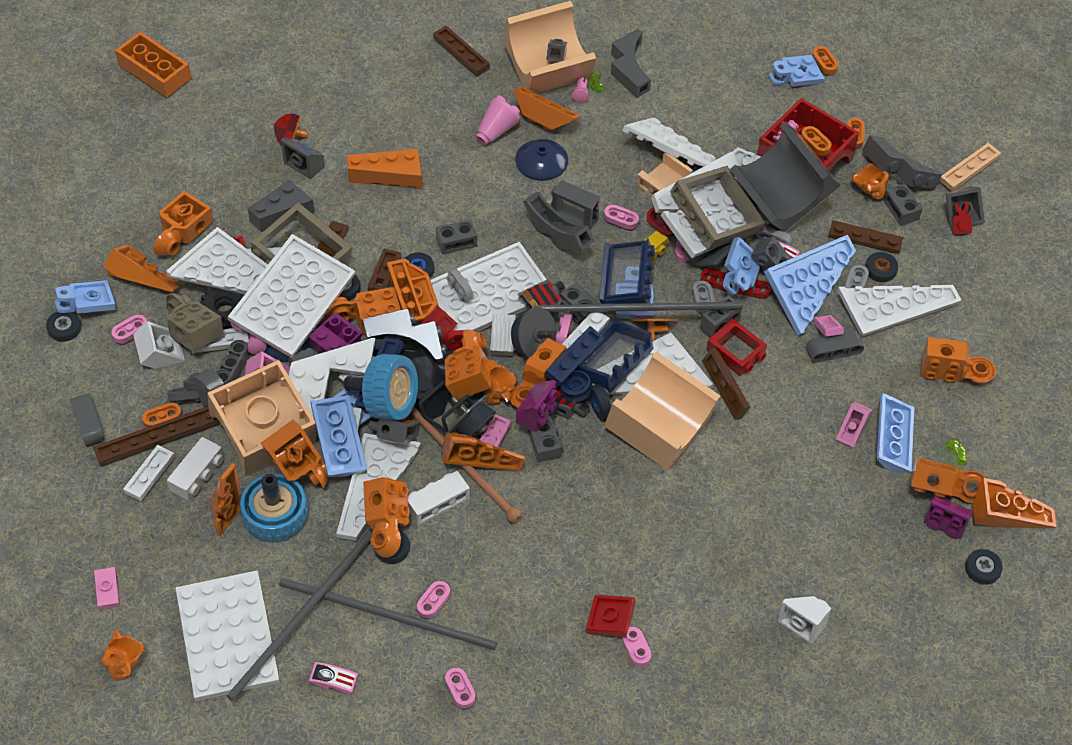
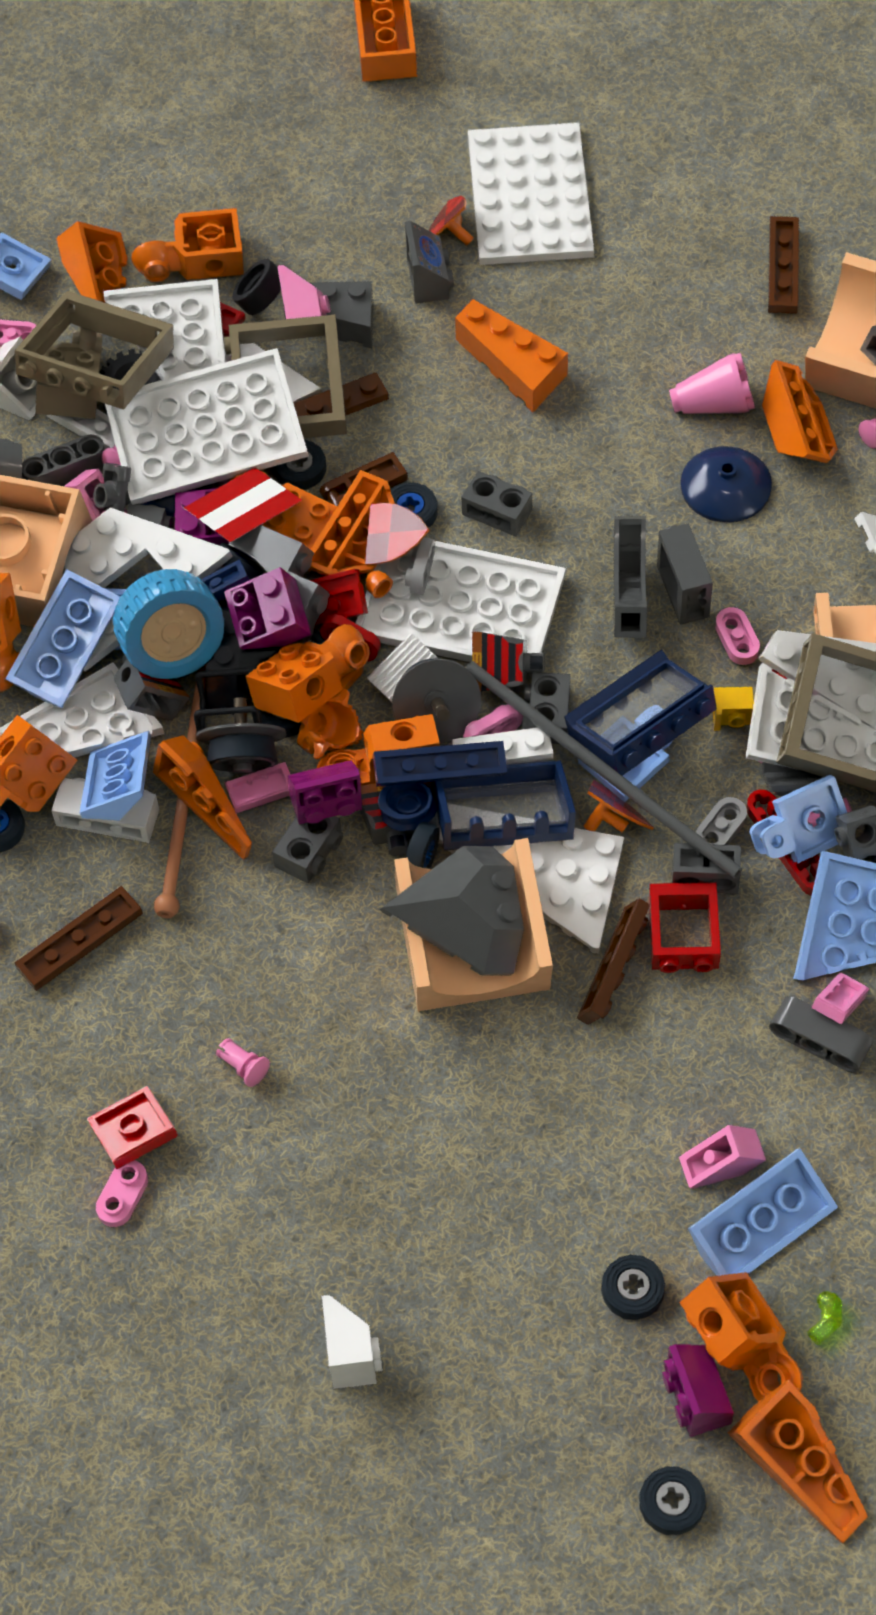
camera: 50 degrees right, 5 degrees up
(198, 278) = (103, 319): none -> dark tan window
(243, 222) = (257, 287): none -> black tyre
(270, 206) = (300, 296): none -> bright pink slope
(277, 352) = (113, 491): none -> dark grey plate
(310, 91) = (530, 194): none -> white plate
(355, 314) = (242, 504): none -> red sticker
(426, 349) = (267, 611): none -> magenta slope
(436, 277) = (392, 532): none -> shield
(436, 474) = (115, 778): none -> light blue slope
(448, 306) = (378, 583): none -> orange hinge
(490, 561) = (78, 938): none -> reddish brown plate
(624, 549) = (246, 1064): none -> bright pink pin
(661, 400) = (467, 909): none -> dark grey wedge
(874, 510) = (633, 1305): none -> black bush

